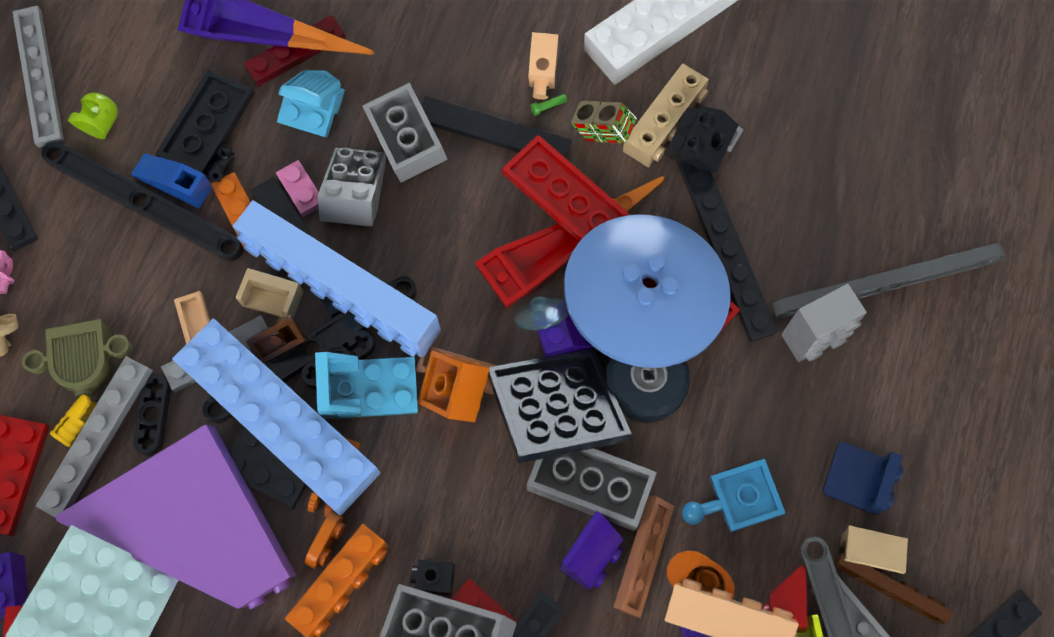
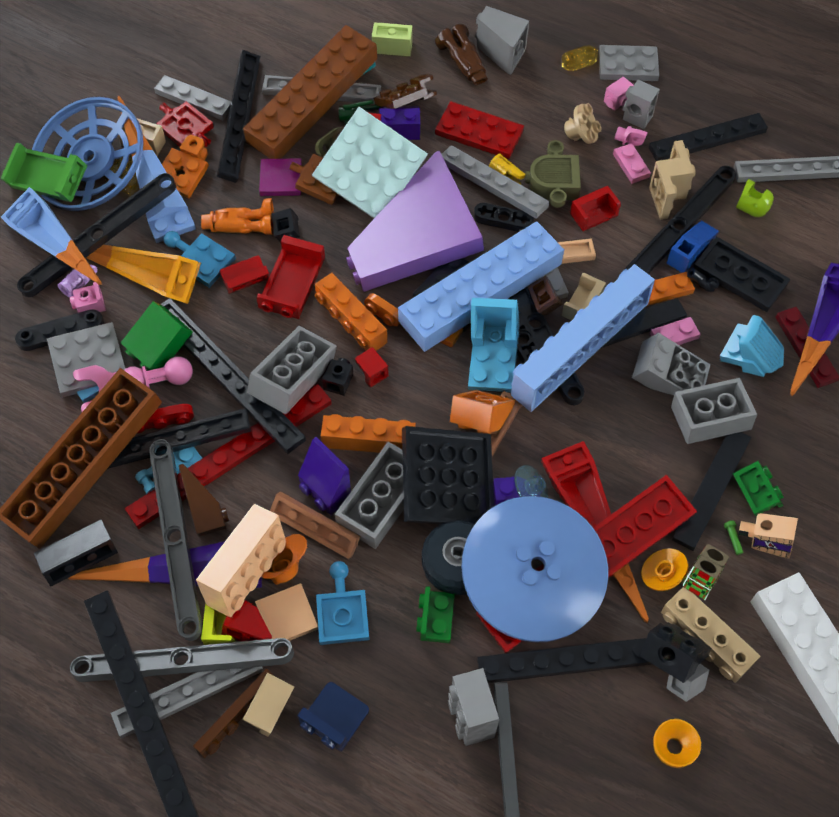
camera: 100 degrees right, 10 degrees down
(44, 268) = (631, 163): none -> bright pink plate
(75, 210) = (671, 179): none -> tan bracket
(126, 300) = (595, 208): none -> red panel
(413, 535) = (373, 367): none -> red panel
(487, 84) = (758, 488): none -> green bracket
(513, 526) = (361, 433): none -> orange brick
(592, 163) = (664, 569): none -> light orange dish
(717, 392) = (437, 616): none -> green bracket
(759, 562) = (287, 613): none -> light nougat tile
(790, 123) = (685, 735): none -> light orange piece

